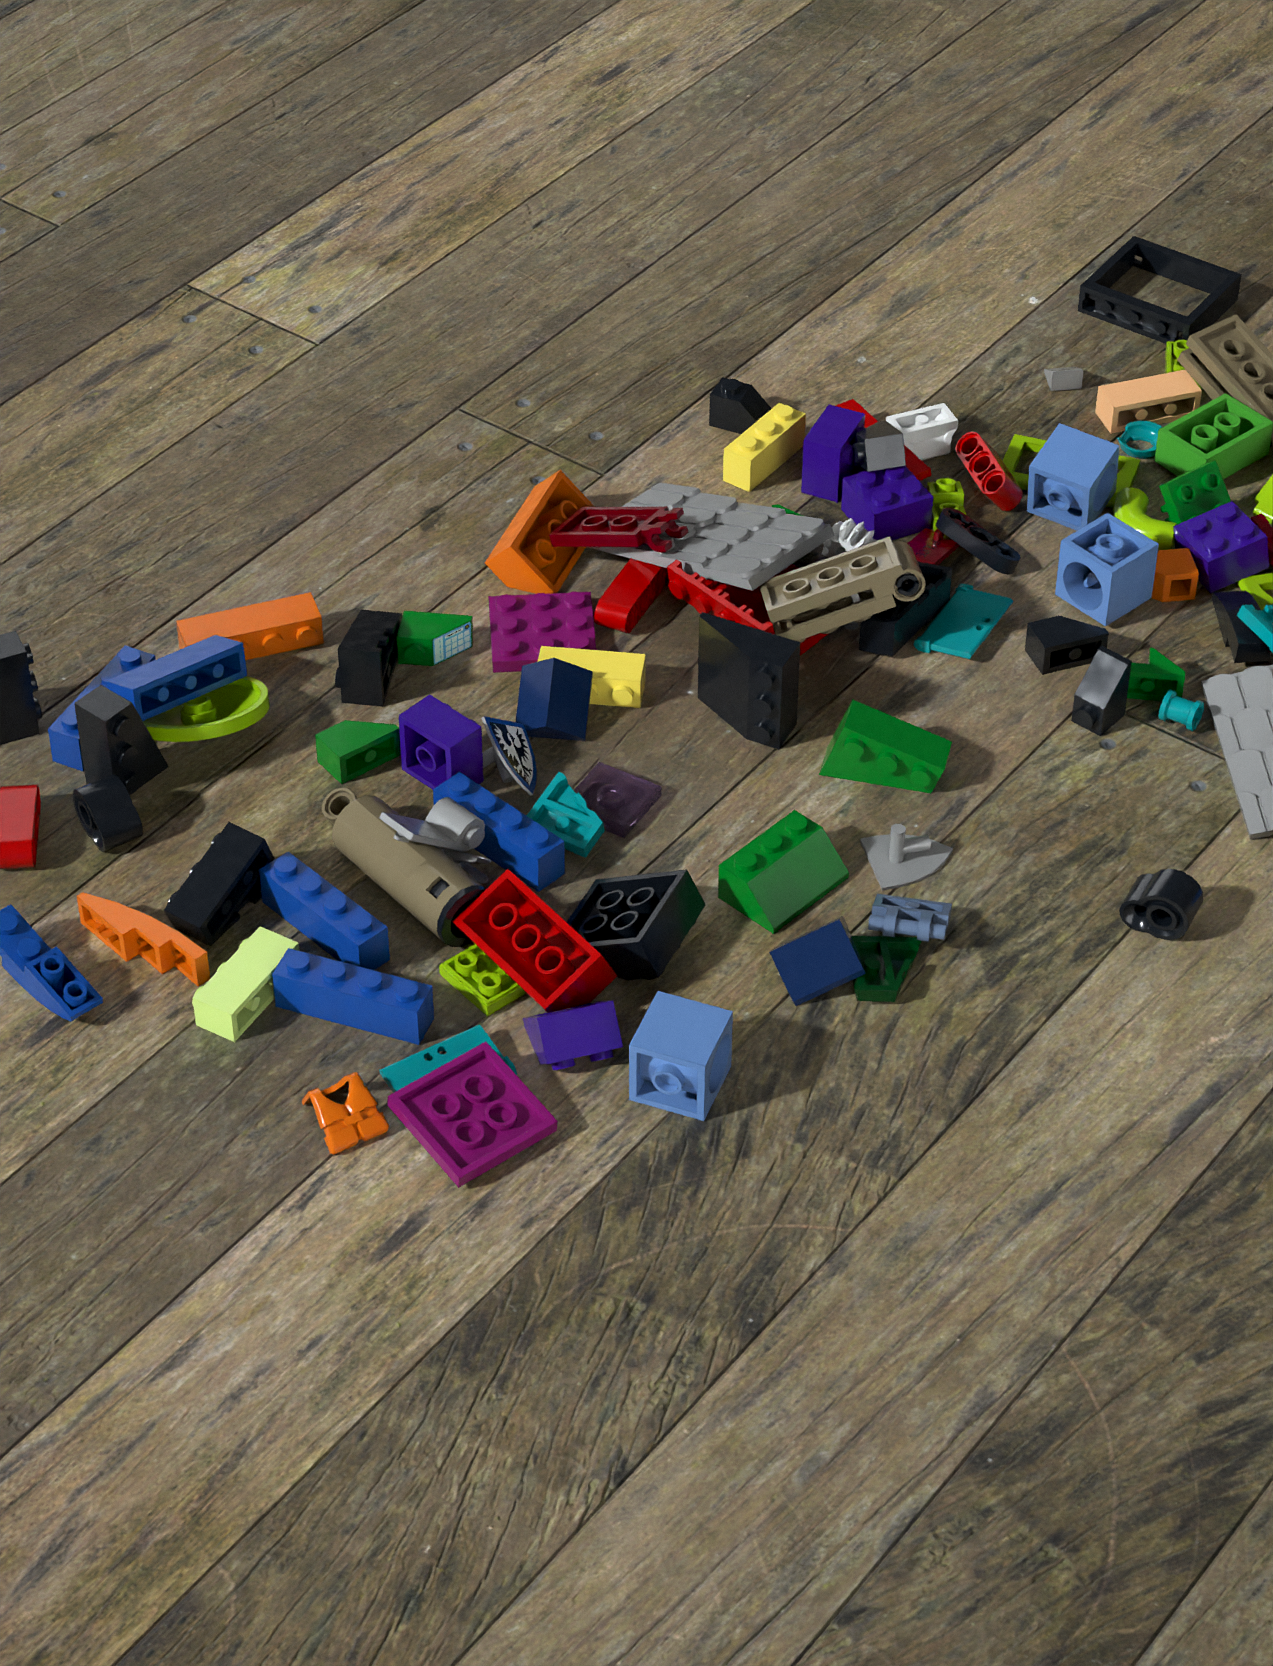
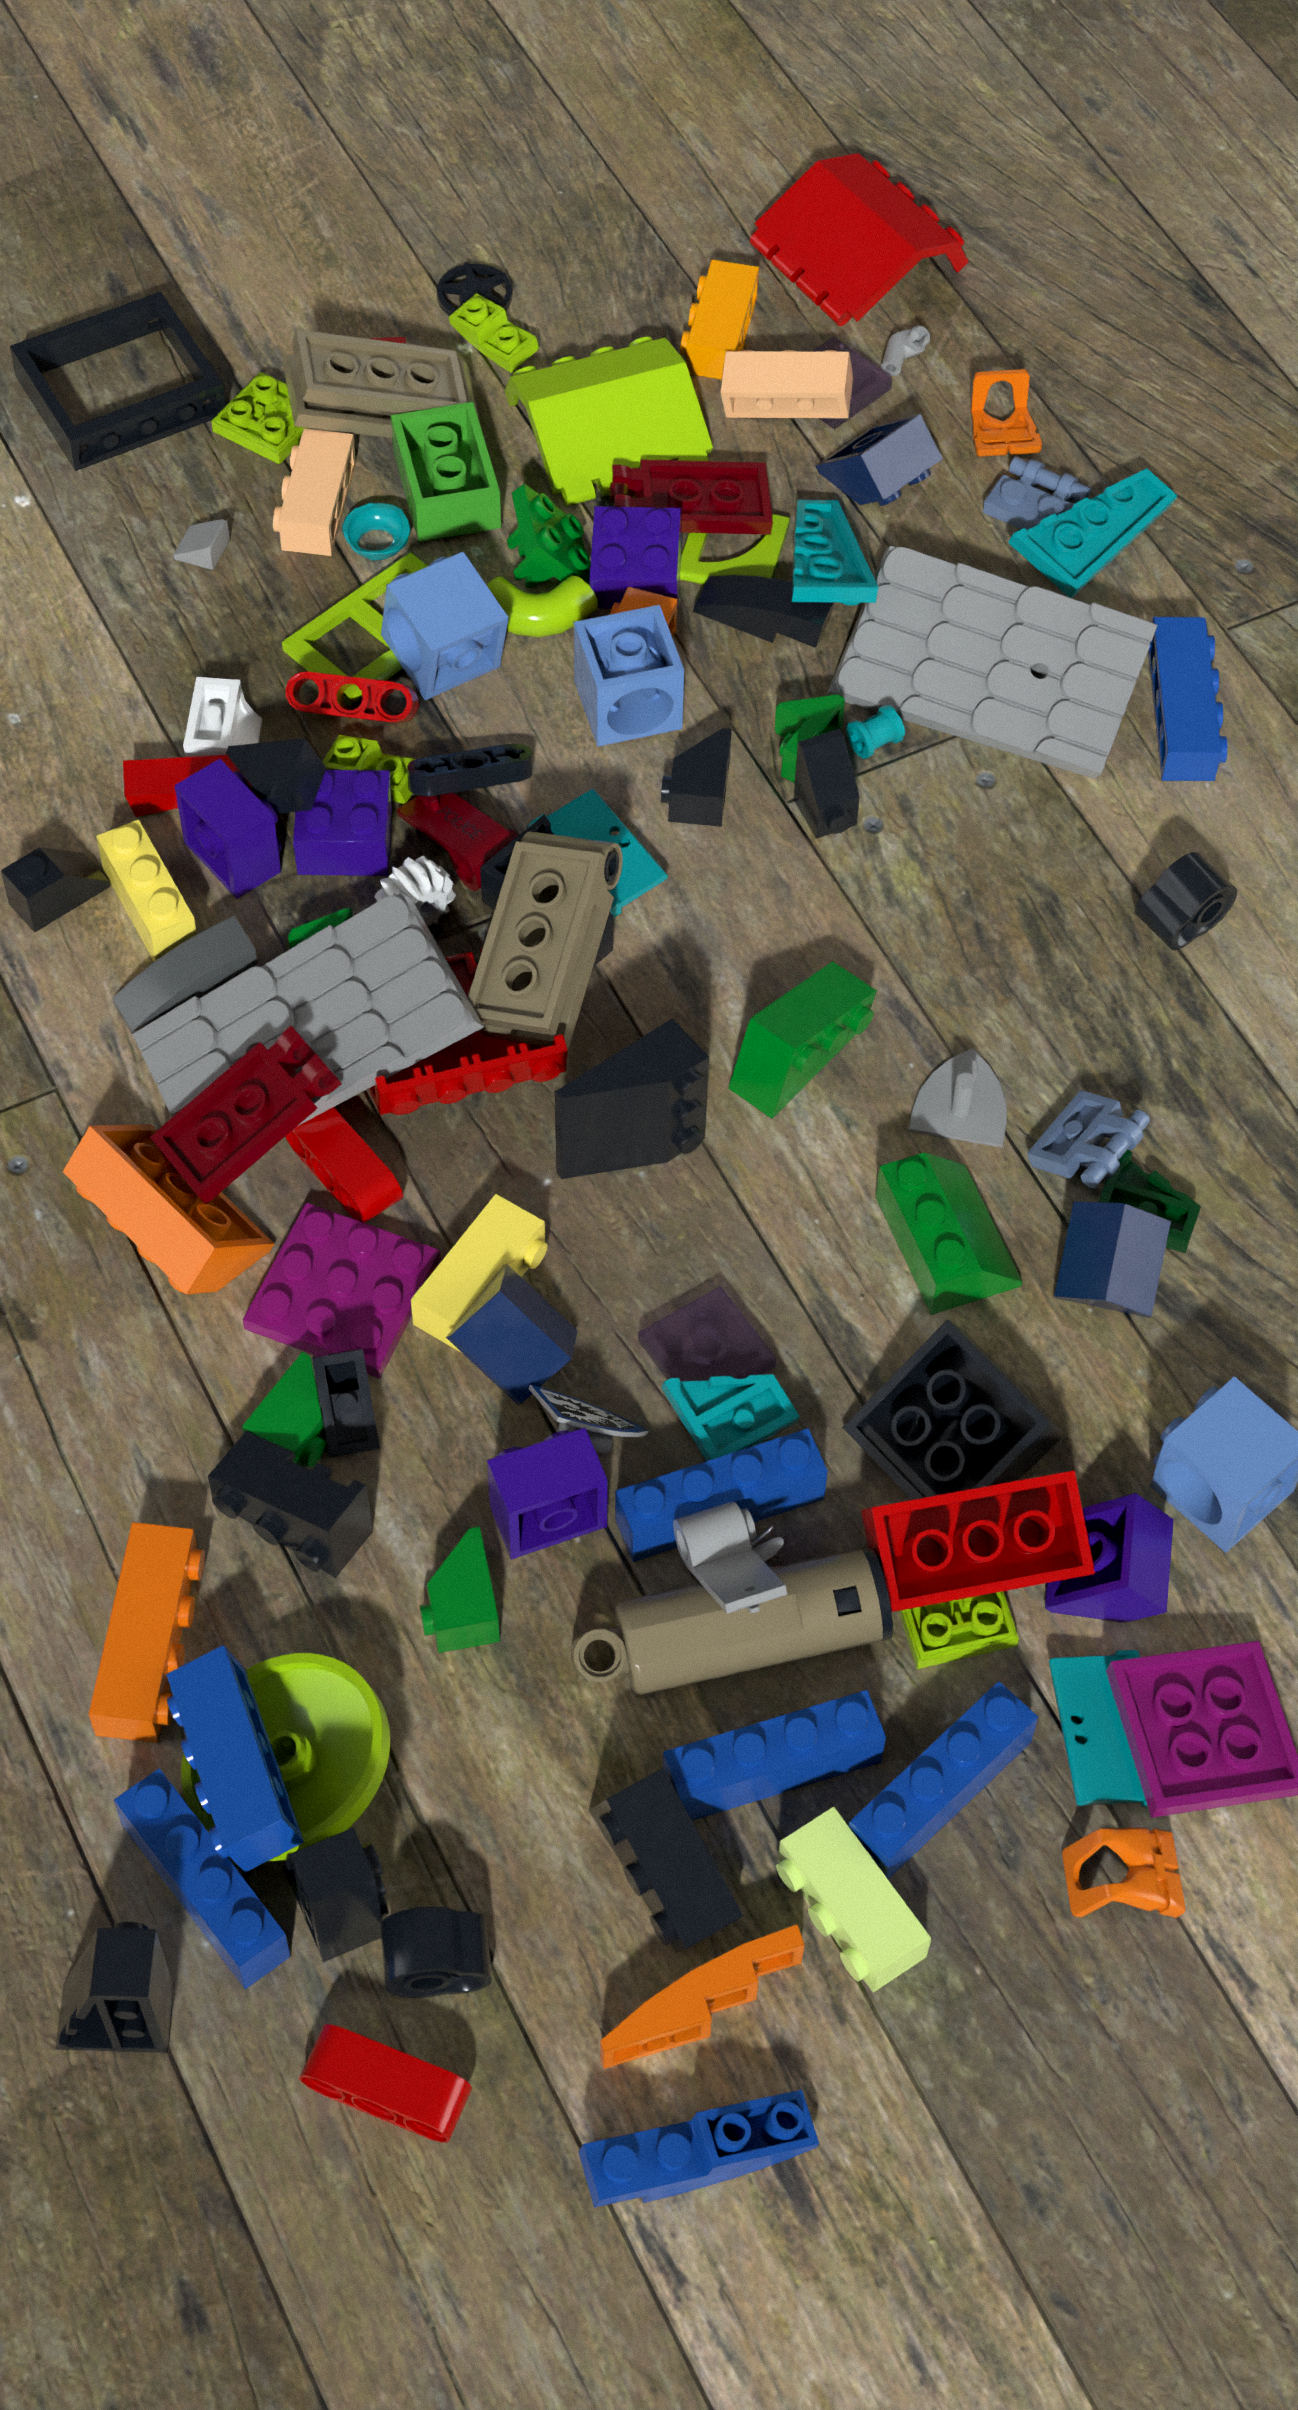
camera: 65 degrees left, 15 degrees up
(457, 644) = (345, 1402): none -> black slope
(724, 481) = (186, 972): none -> dark grey slope

